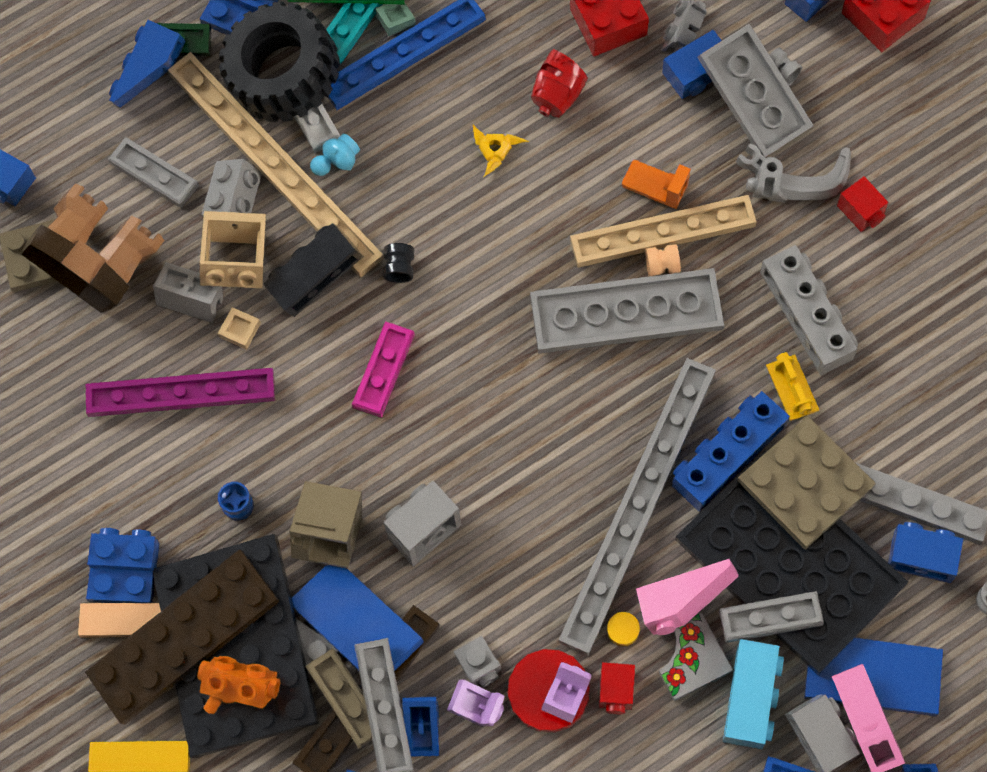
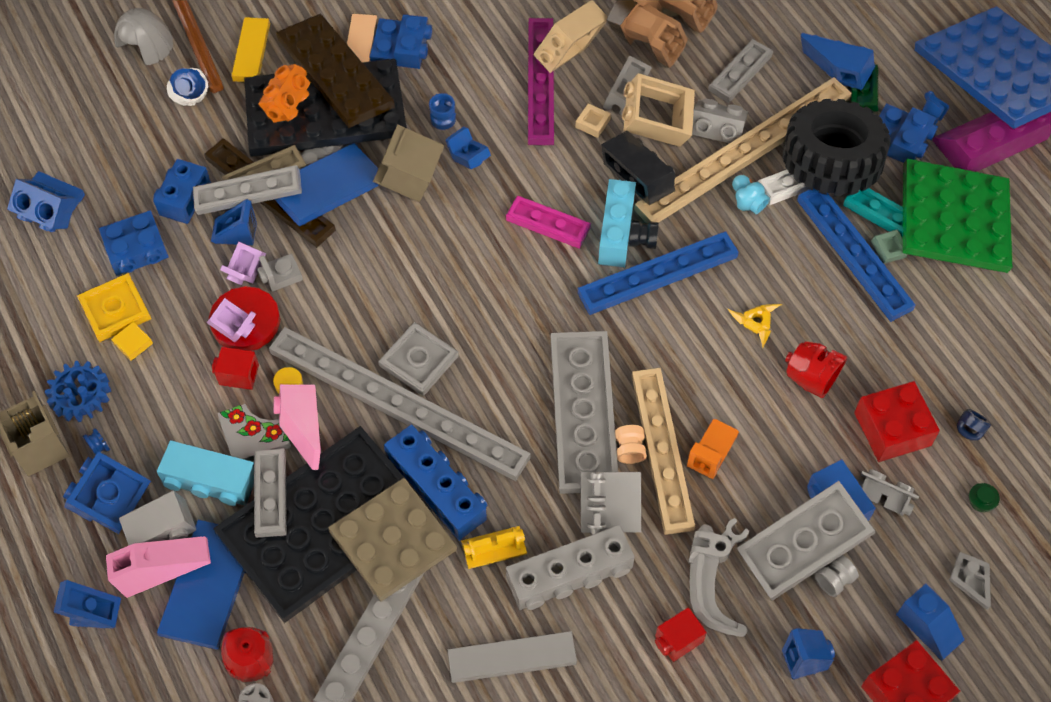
camera: 90 degrees right, 10 degrees down
(131, 350) = (571, 36): none -> tan window
(293, 464) = (466, 150): none -> blue bracket
(387, 290) = (616, 223): none -> medium azure brick
(422, 522) = (399, 229): light grey brick -> none
(447, 247) = (657, 273): none -> blue plate
(581, 488) = (418, 358): none -> light grey plate
(734, 275) = (610, 501): none -> light grey hinge
(867, 91) = (807, 652): none -> blue slope
(905, 360) = (511, 657): none -> light grey tile
(925, 552) = (310, 642): blue brick -> none
(948, 613) = (247, 653): none -> red helmet

